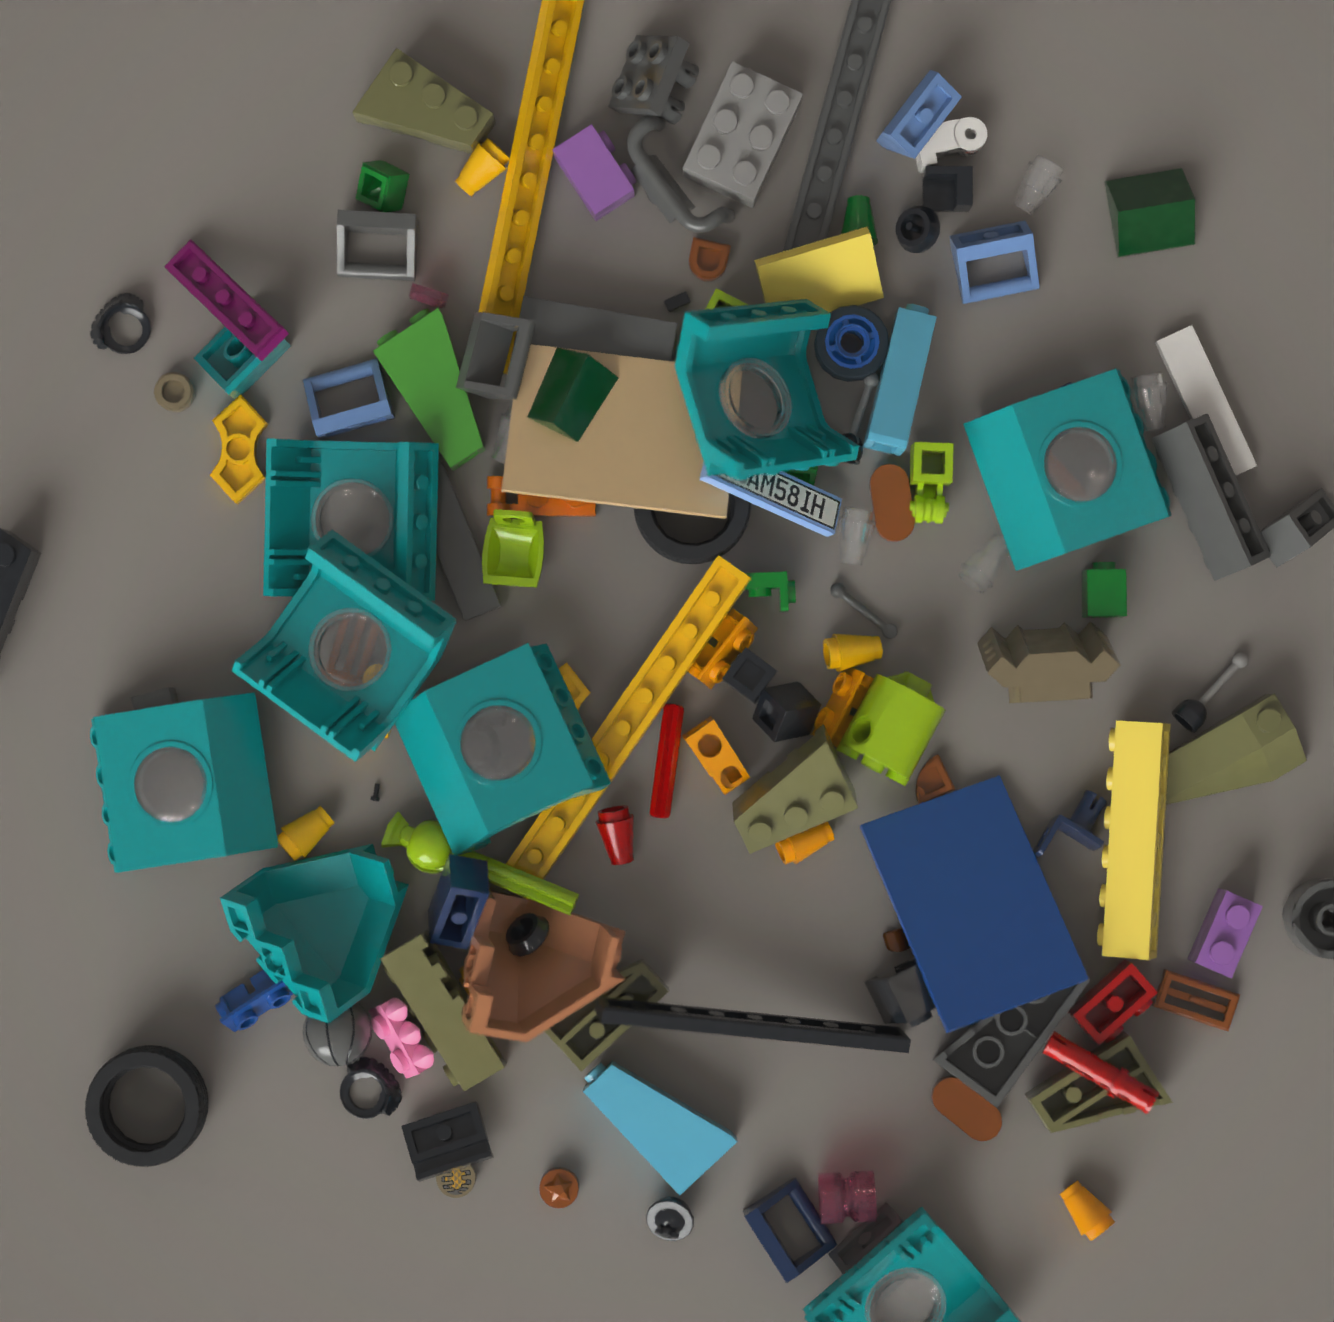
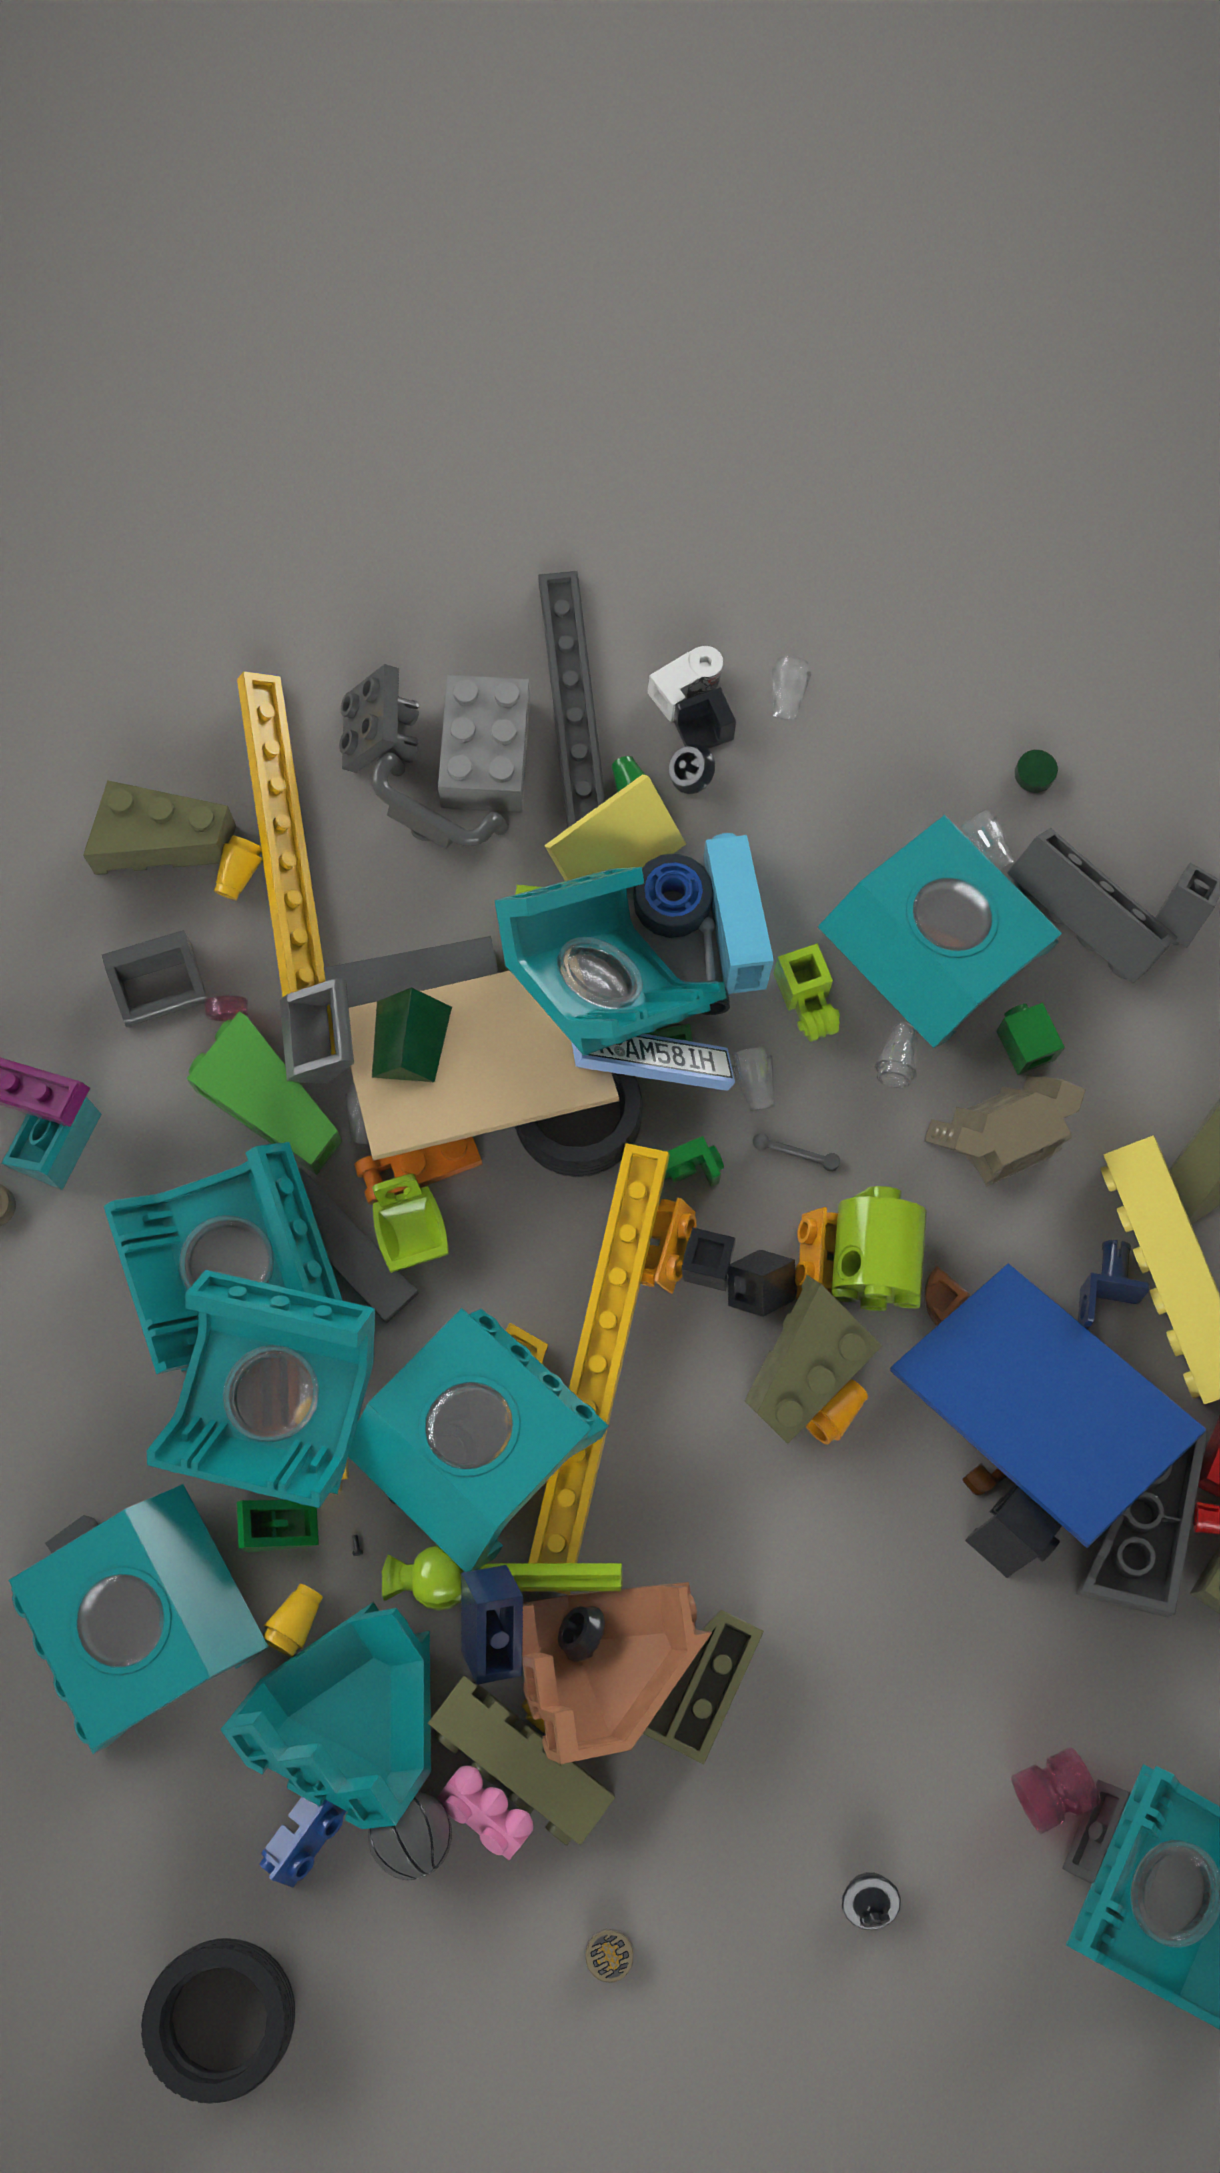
camera: 25 degrees left, 15 degrees down
(238, 465) = (85, 1255): yellow tile -> none
(314, 754) = (276, 1525): none -> green slope
(353, 418) = (189, 1158): medium blue tile -> none
(382, 186) = (140, 921): green slope -> none
(389, 1097) = (497, 1890): black piece -> none
(447, 1141) = (583, 1915): black plate -> none
(559, 1187) = (730, 1918): dark orange tile -> none
(594, 172) = (351, 830): medium lavender brick -> none
(617, 833) = (635, 1483): red cone -> none
(661, 1127) = (822, 1797): medium azure slope -> none
(666, 760) = (657, 1385): red axle -> none
(677, 301) = (479, 927): black piece -> none
(708, 259) = (497, 872): dark orange tile -> none
(716, 755) = (708, 1356): light orange leg -> none
(751, 1024) = (866, 1632): black tile -> none
(769, 1239) = (961, 1854): dark blue tile -> none
(849, 651) = (800, 1195): yellow cone -> none
(891, 502) = (778, 1031): dark orange tile -> none
(920, 116) = (649, 661): medium blue tile -> none
(966, 1108) = (1136, 1635): dark orange tile -> none
(990, 243) = (767, 753): medium blue tile -> none
(1151, 212) = (909, 675): dark green slope -> none
(1191, 712) = (1172, 1123): hinge -> none
(1203, 394) = (1031, 814): white tile -> none
(1224, 349) = (1036, 771): none -> dark green tile

